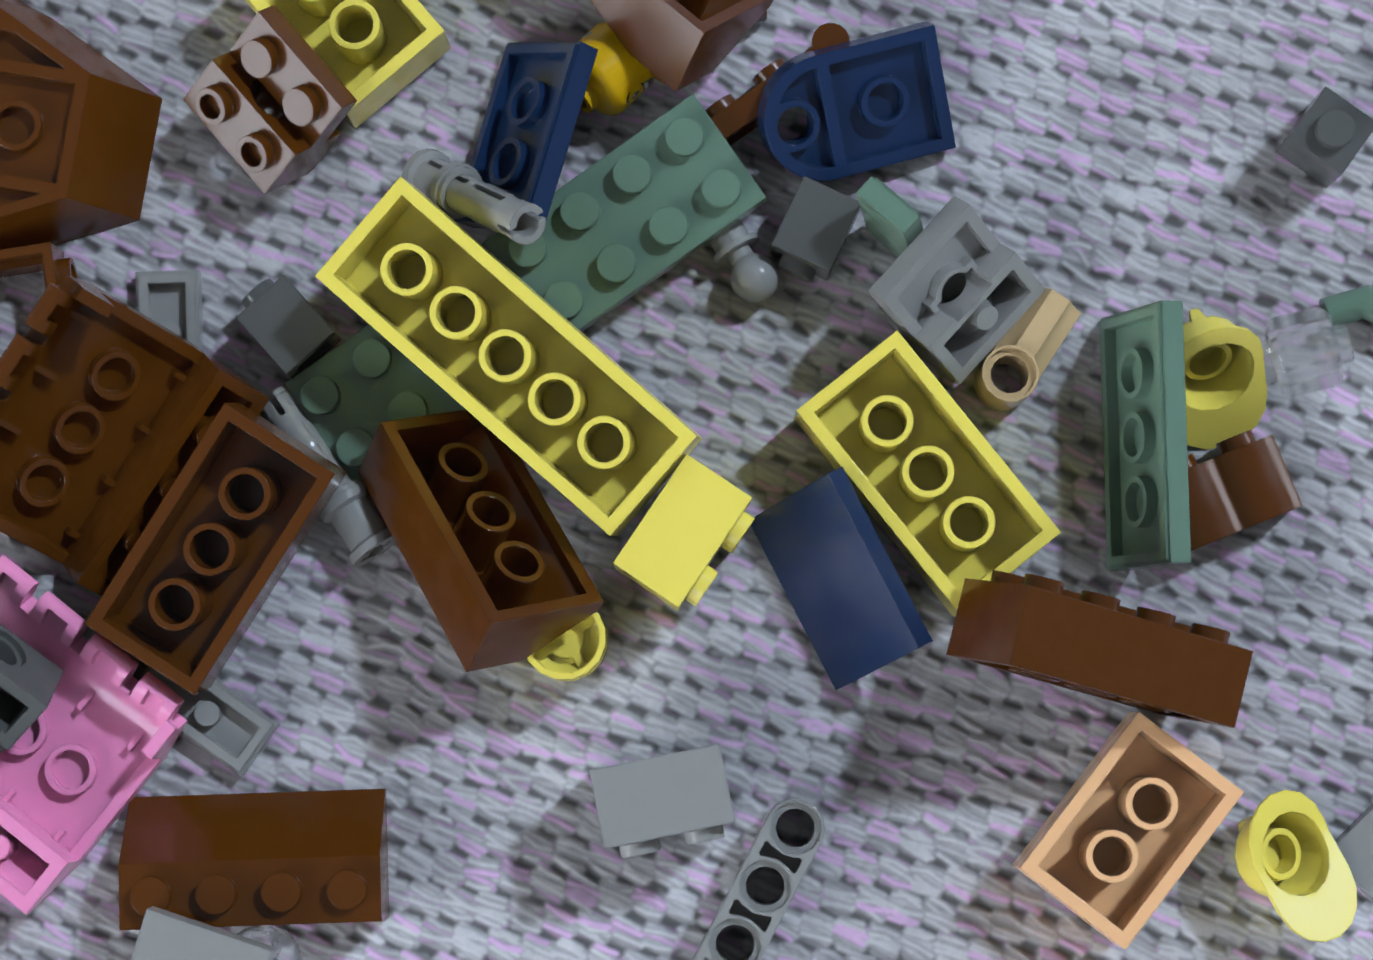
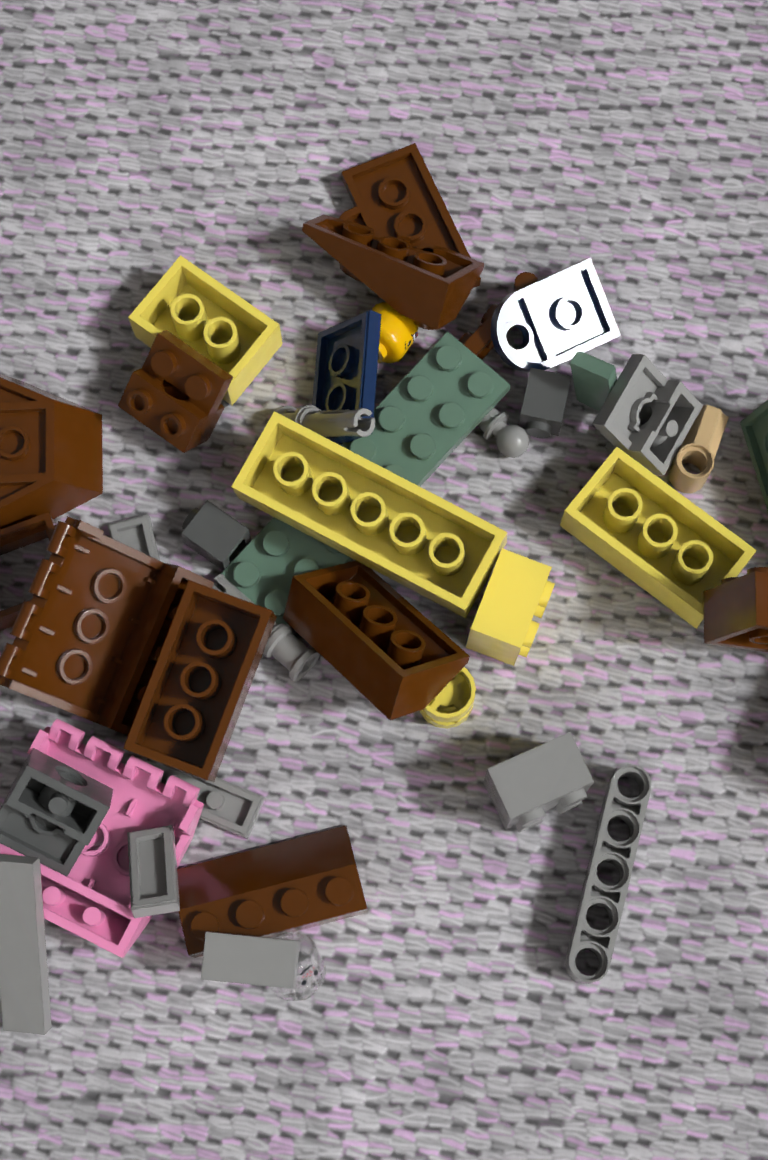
camera: 15 degrees left, 10 degrees down
(94, 802) = (153, 871): none -> light grey tile
(840, 579) = (618, 616): dark blue tile -> none

